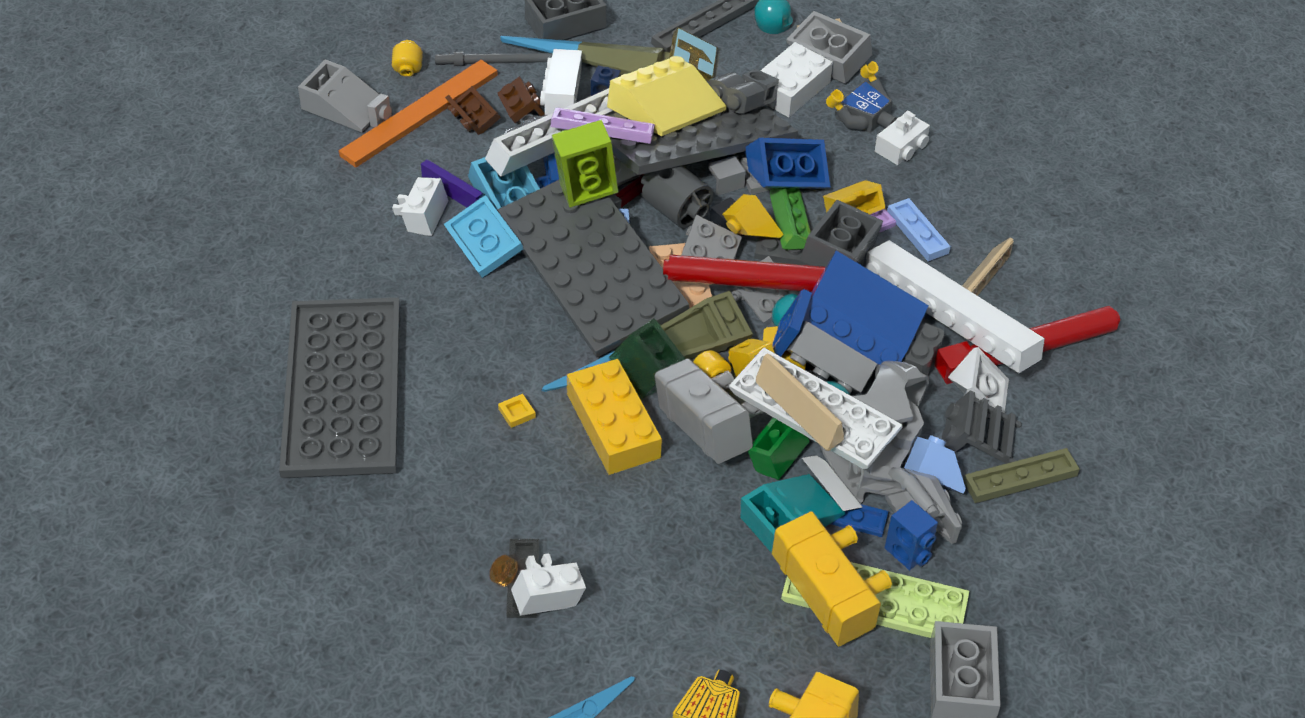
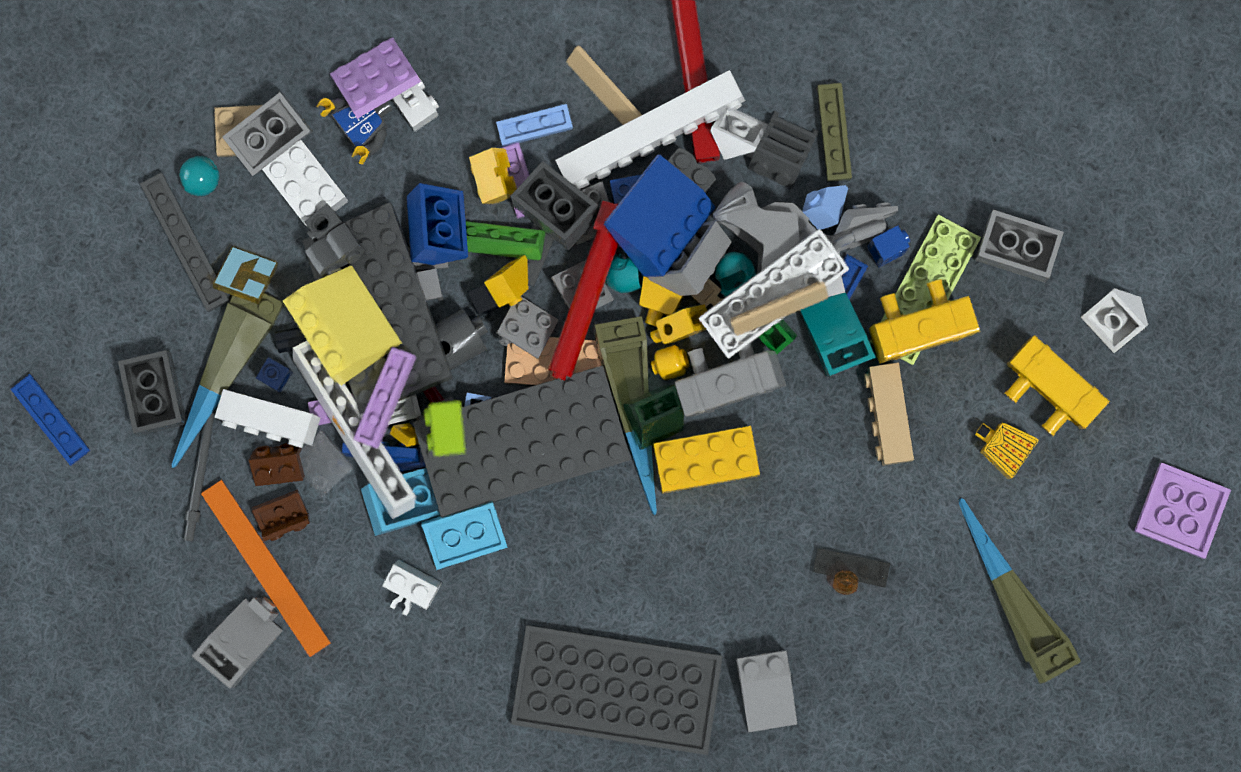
camera: 75 degrees left, 35 degrees up
(363, 514) = (766, 691): none -> light grey slope
(407, 58) = (186, 570): yellow head -> none
(453, 186) = (387, 553): dark purple tile -> none
(516, 410) = (675, 541): yellow tile -> none
(547, 587) = (877, 550): white brick -> none
(715, 579) = (890, 414): none -> tan brick
(791, 323) = (665, 285): blue tile -> none
(916, 103) = (375, 77): none -> lavender plate

